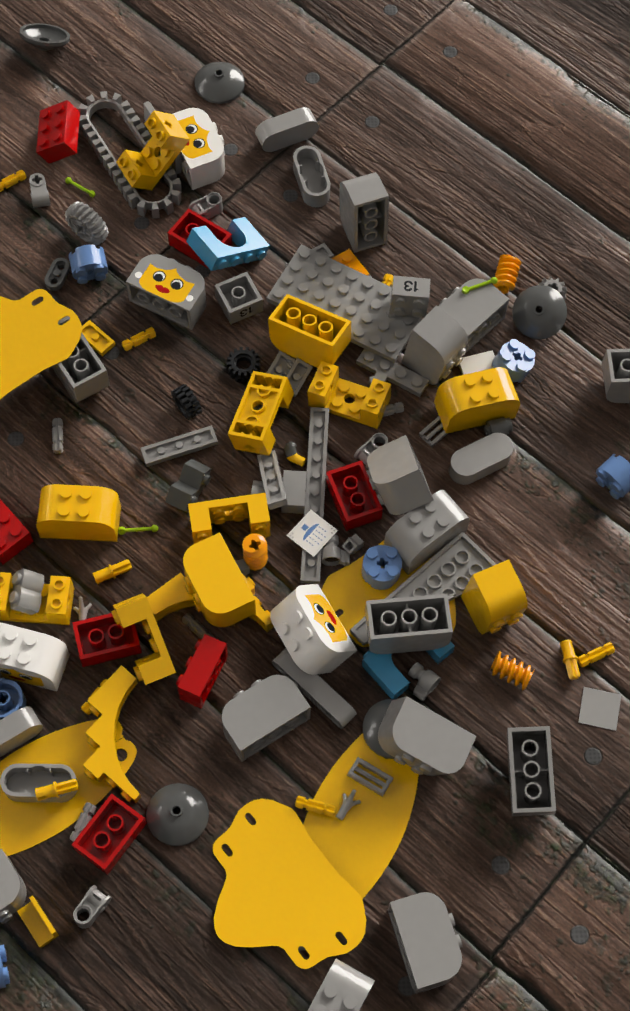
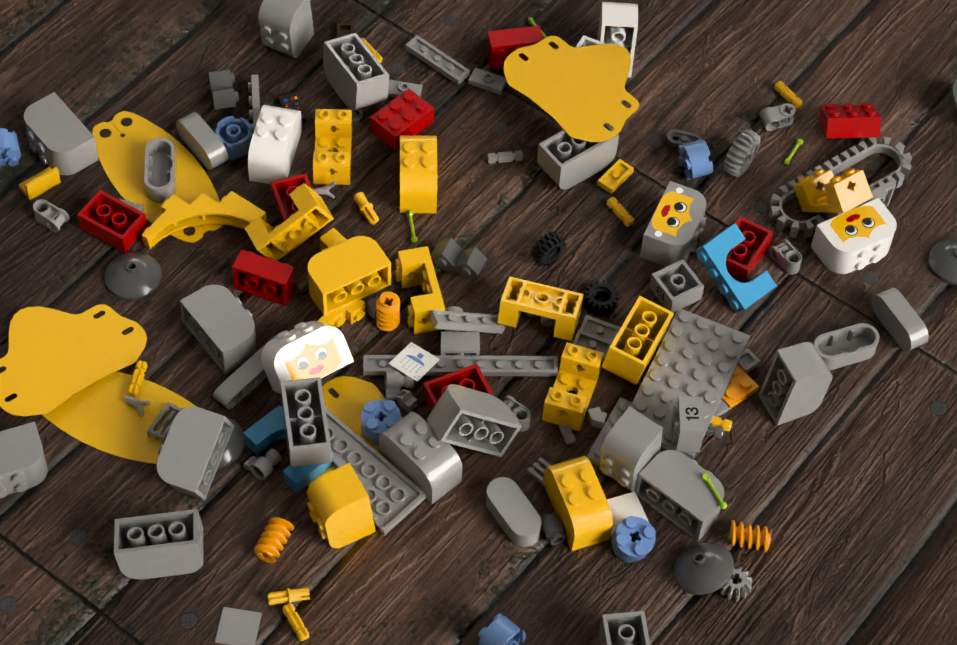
camera: 85 degrees right, 10 degrees down
(26, 591) = (336, 140): light grey brick -> none
(56, 789) = (148, 173): yellow axle -> none
(179, 446) = (502, 249): light grey plate -> none
(291, 454) = (503, 345): arm -> none

